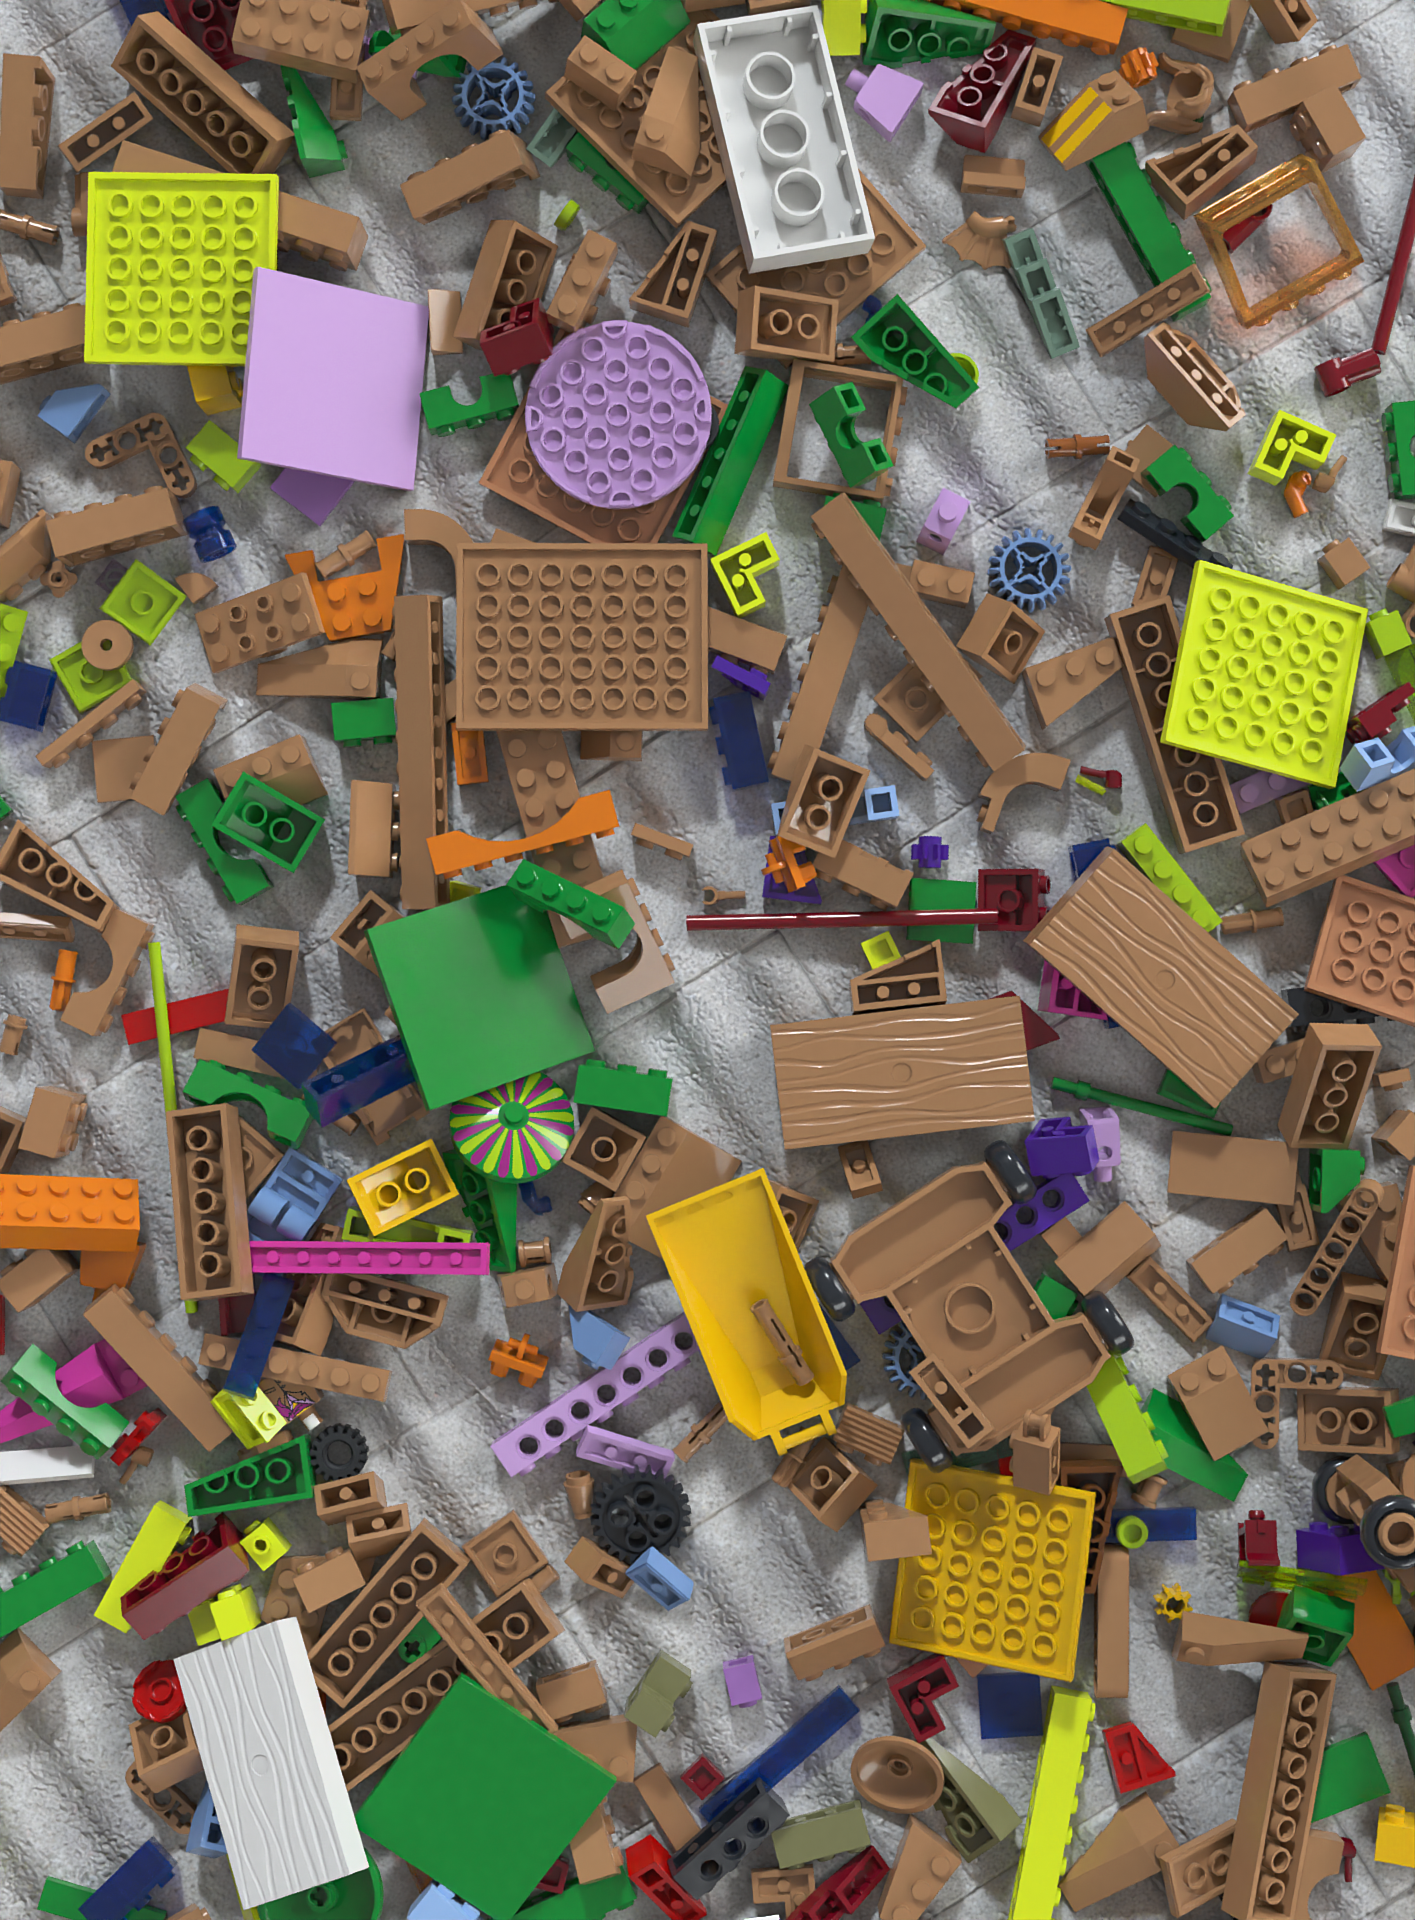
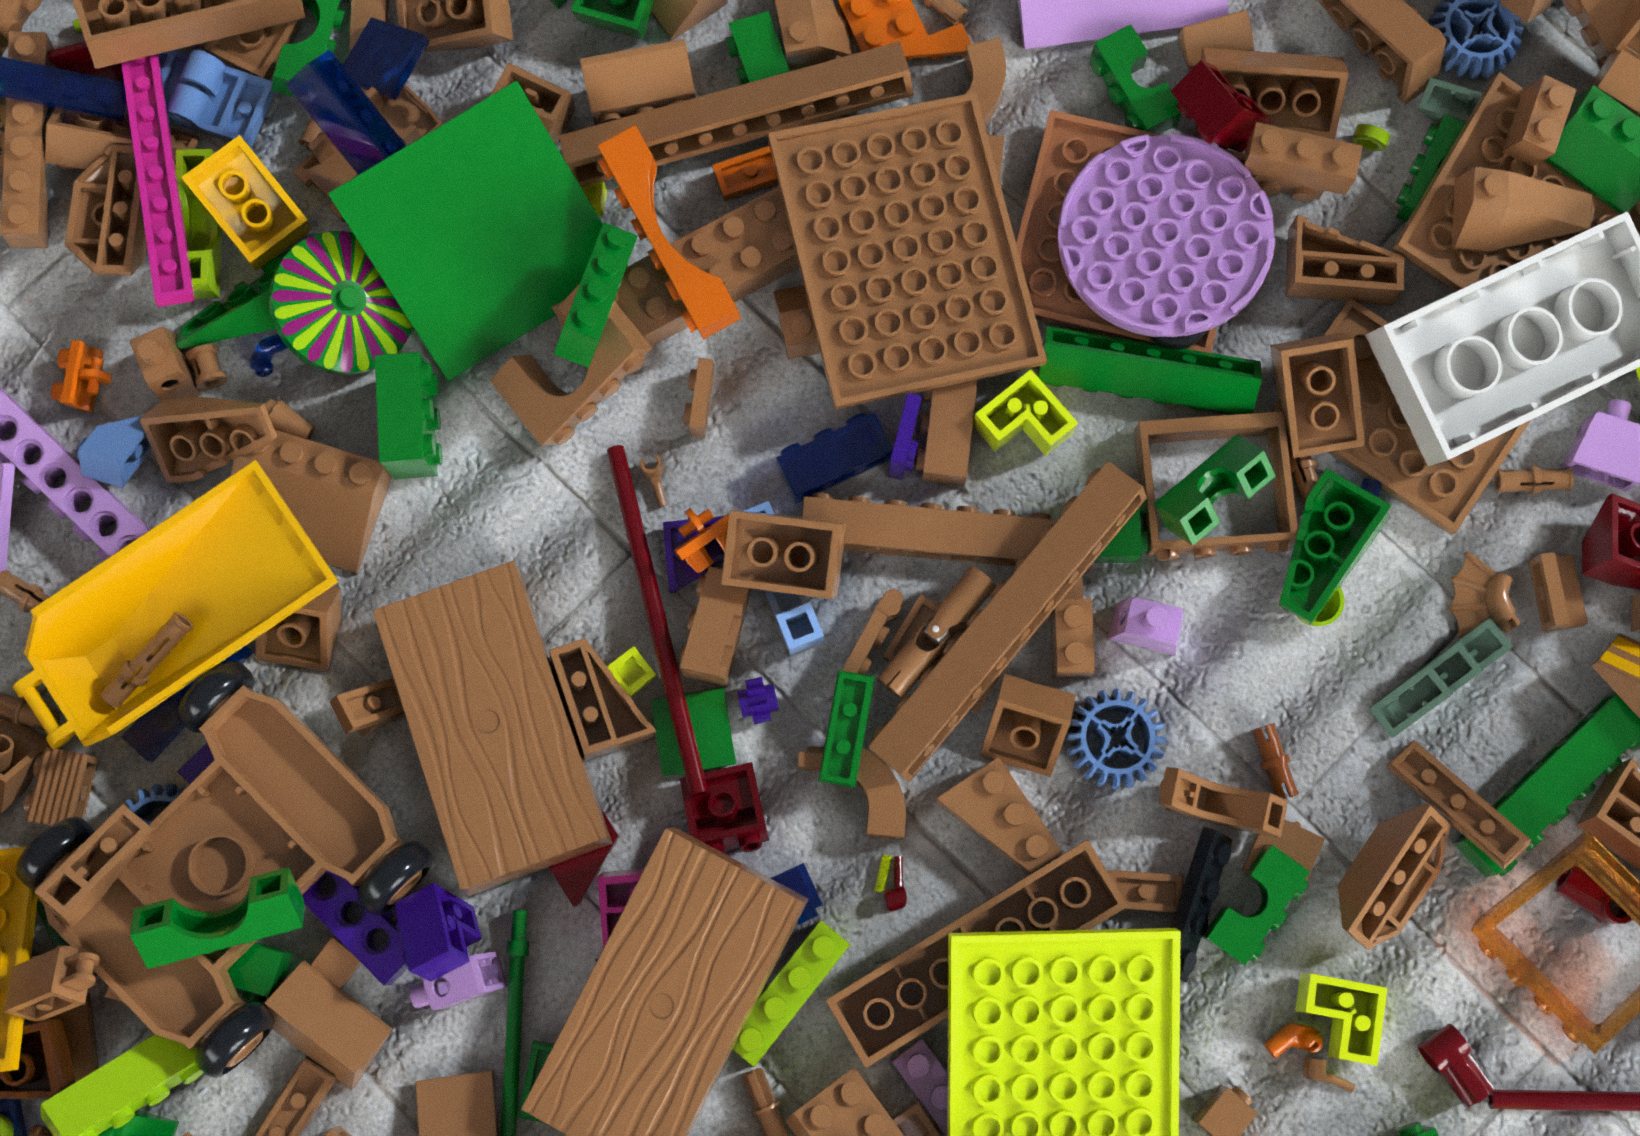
camera: 75 degrees right, 10 degrees down
(603, 1148) = (334, 408): medium nougat slope -> none
(896, 167) = (1533, 480): none -> medium nougat pin
(897, 674) = (951, 614): none -> medium nougat piece
(974, 785) = (846, 729): none -> green tile
(1022, 1347) = (173, 932): none -> green arch

